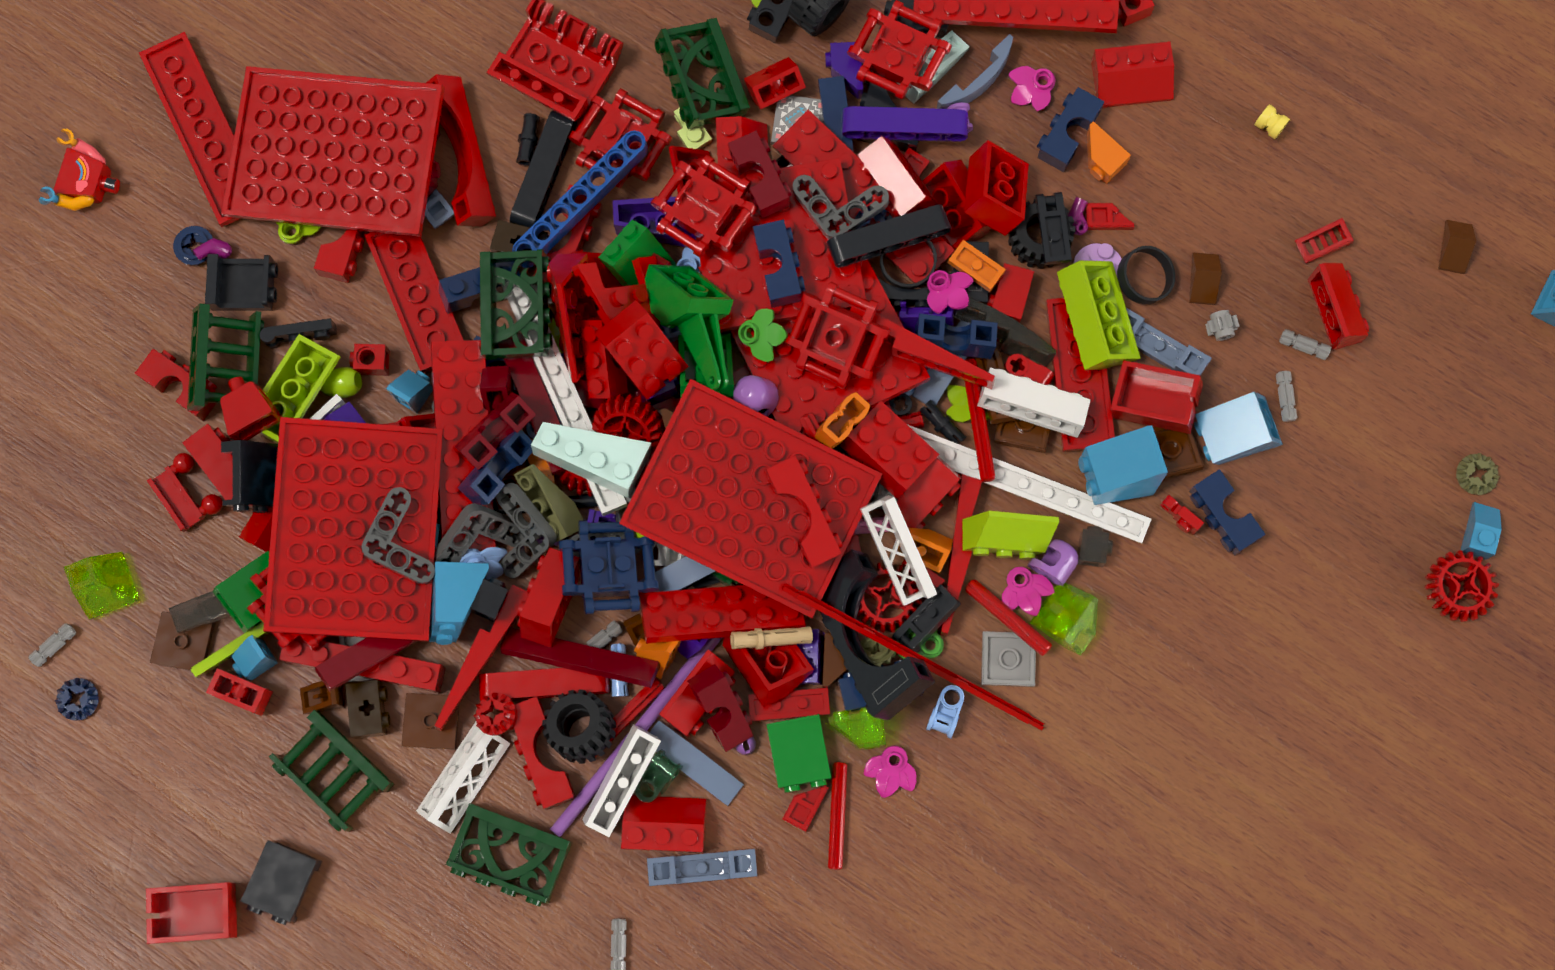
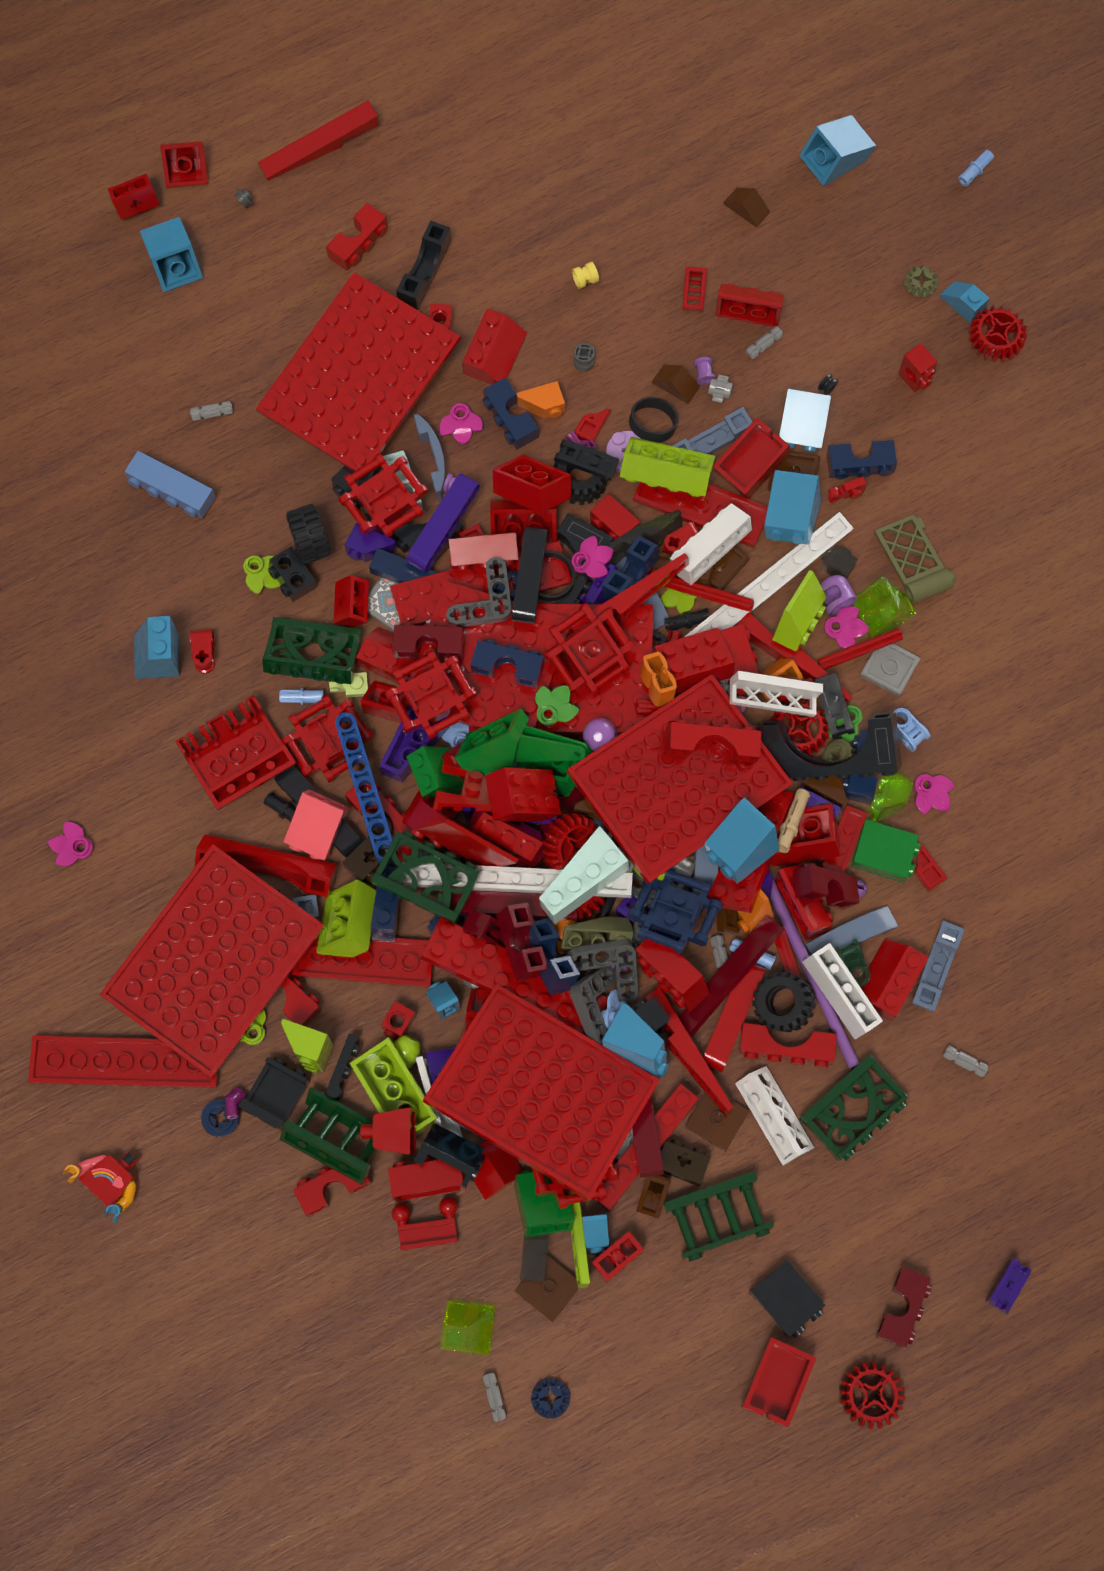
camera: 65 degrees left, 5 degrees down
(293, 284) = (309, 1046): none -> lime slope
(385, 538) = (564, 1068): dark grey beam -> none
(439, 256) = (347, 920): none -> lime slope
(502, 721) = (751, 1056): red gear -> none
(523, 173) = (315, 825): none -> coral panel
(653, 90) = (300, 696): none -> light blue axle
(710, 595) = (742, 842): none -> dark azure slope
(837, 816) = (948, 849): red axle -> none
(904, 651) = (855, 729): red piece -> none
(977, 265) = (583, 528): orange plate -> none
(1129, 654) = (929, 581): none -> olive piece
(1175, 174) = (581, 361): none -> dark grey wheel
(1234, 298) = (704, 370): none -> medium lavender bush
(1286, 396) = (795, 375): light grey axle -> none
(1293, 434) = (828, 384): none -> black bush
(1365, 519) = (918, 368): none -> red brick

